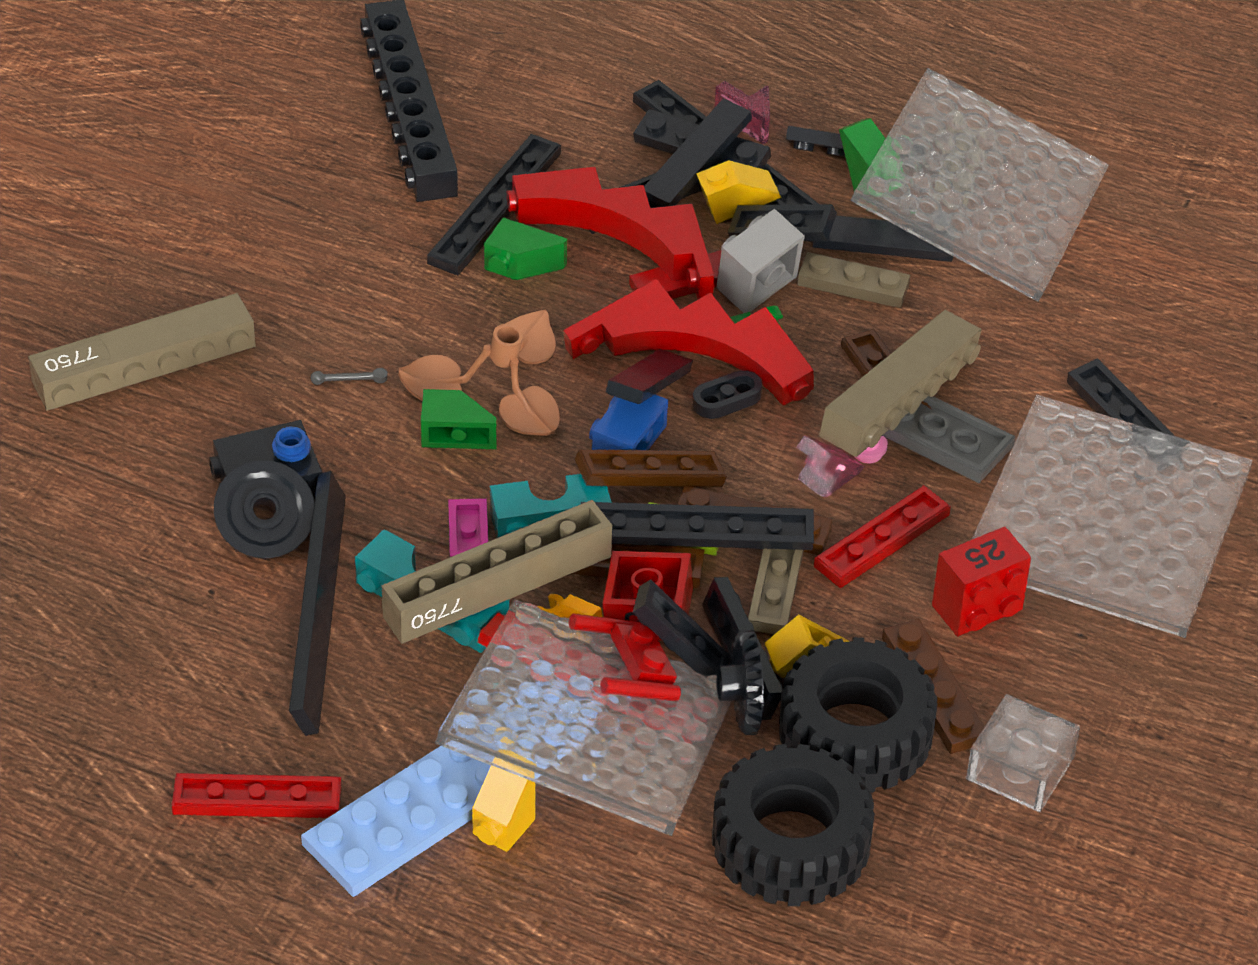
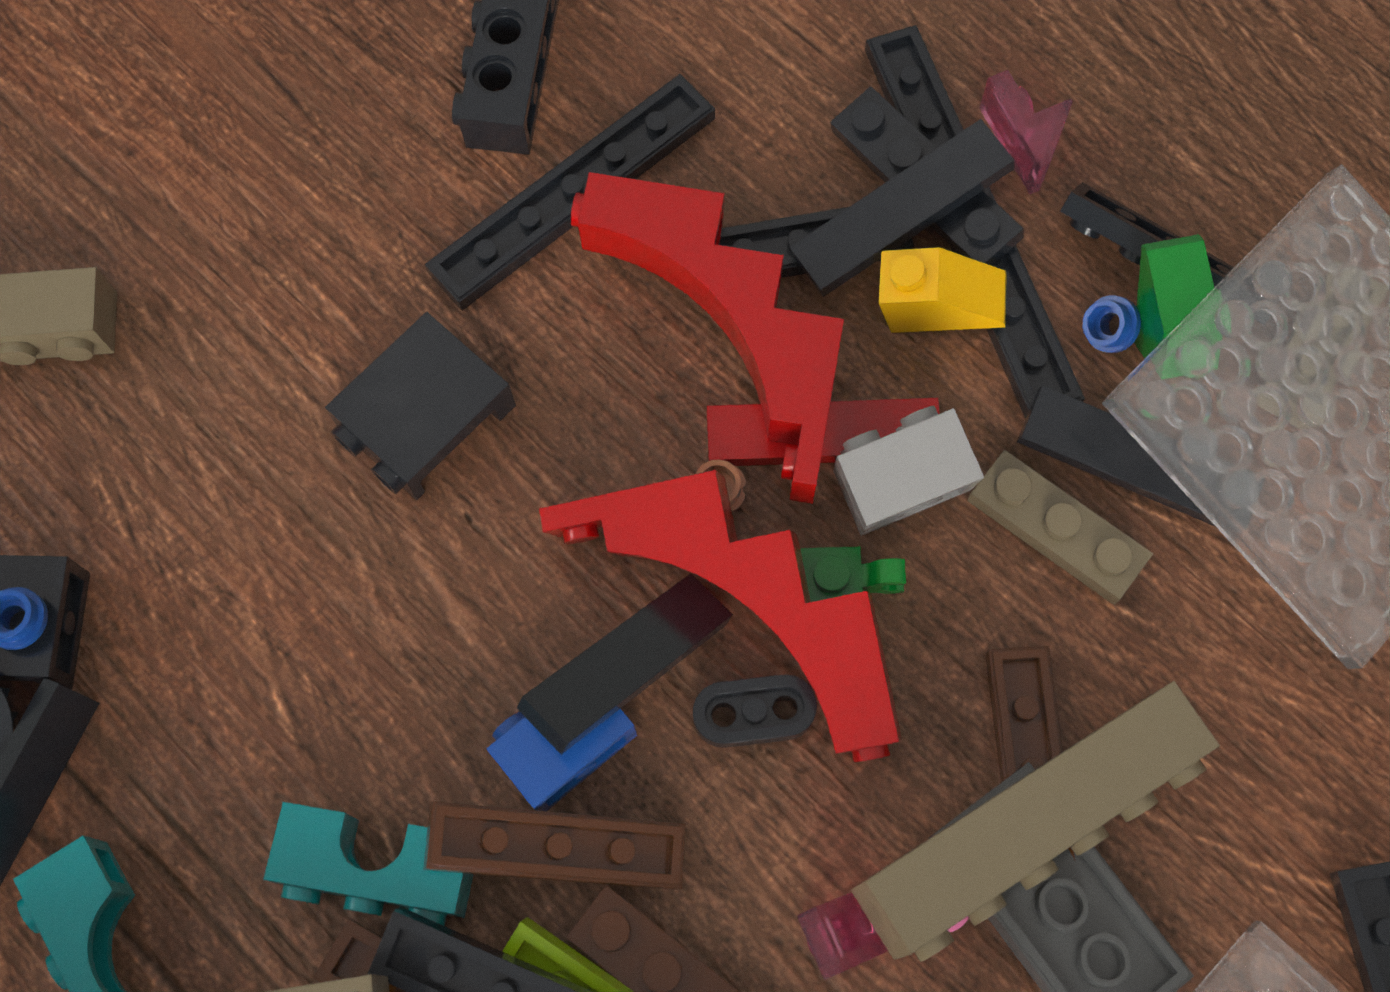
camera: 25 degrees right, 25 degrees up
(378, 375) = (257, 473): dark grey hinge -> none
(456, 421) = (306, 616): green slope -> none
(462, 313) = (417, 404): none -> black panel
(467, 524) = (229, 863): dark pink plate -> none
(522, 338) = (438, 631): nougat plant -> none
(523, 251) = (561, 306): green slope -> none
(811, 220) = (984, 390): black plate -> none
(831, 180) = (1097, 321): none -> blue plate

